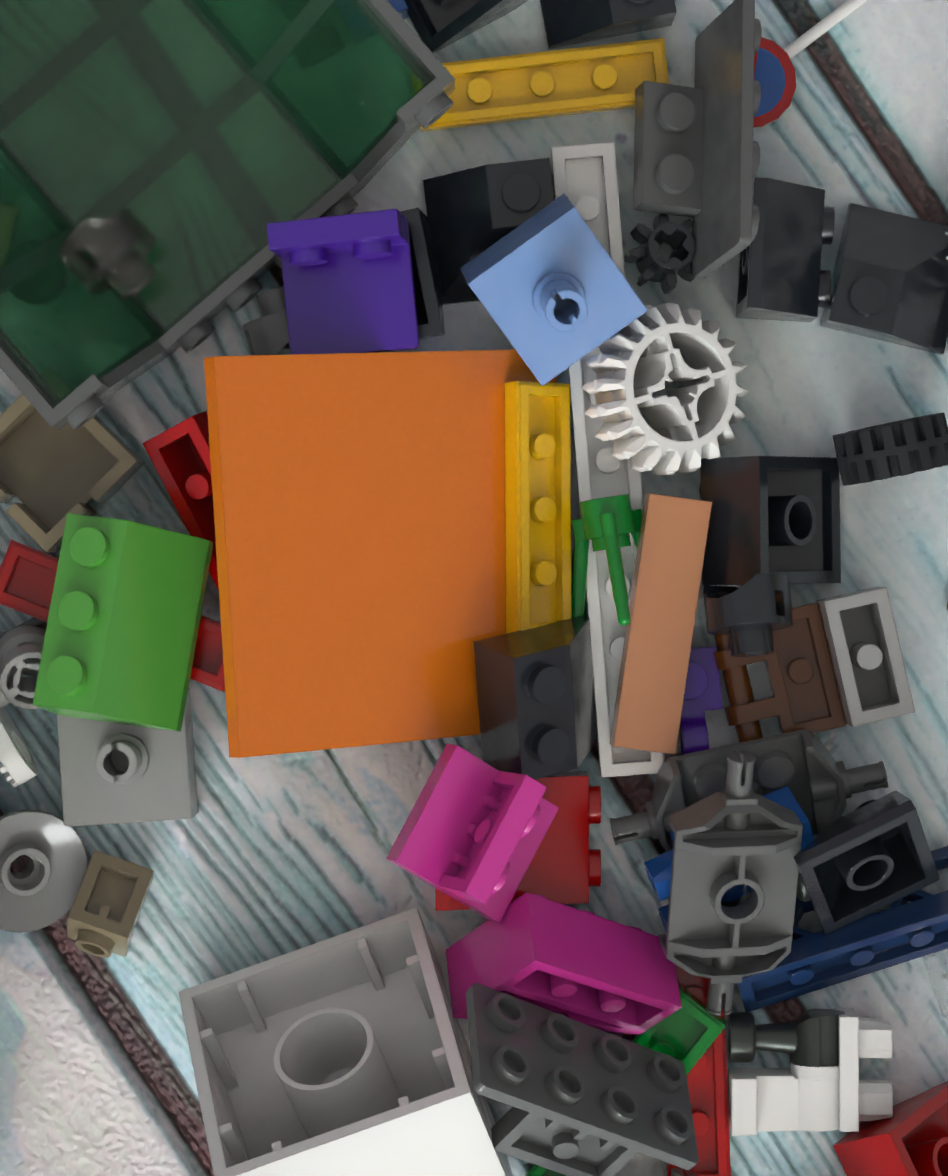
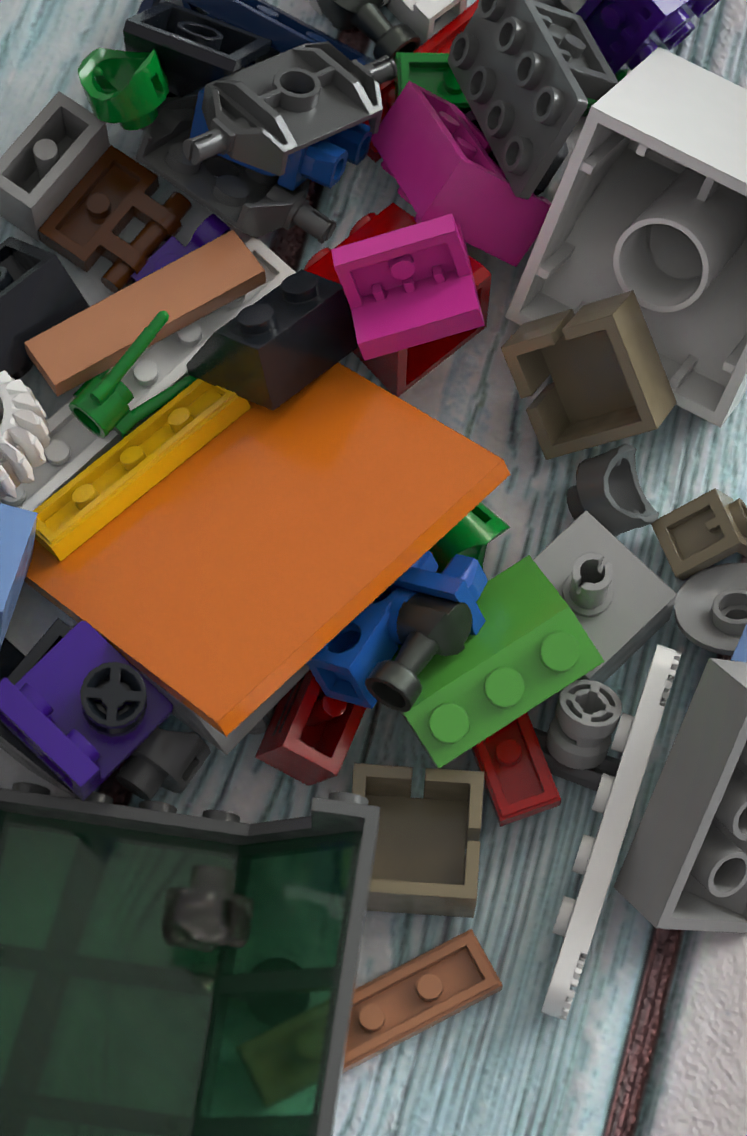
camera: 135 degrees left, 20 degrees down
(180, 601) = (419, 611): none -> hips
(198, 857) = (611, 491): none -> dark grey piece
(294, 918) = (602, 375): none -> dark tan piece
(316, 303) = (113, 685): none -> black wheel
(749, 613) = (87, 251): black piece -> none
(864, 769) = (125, 86): none -> green piece

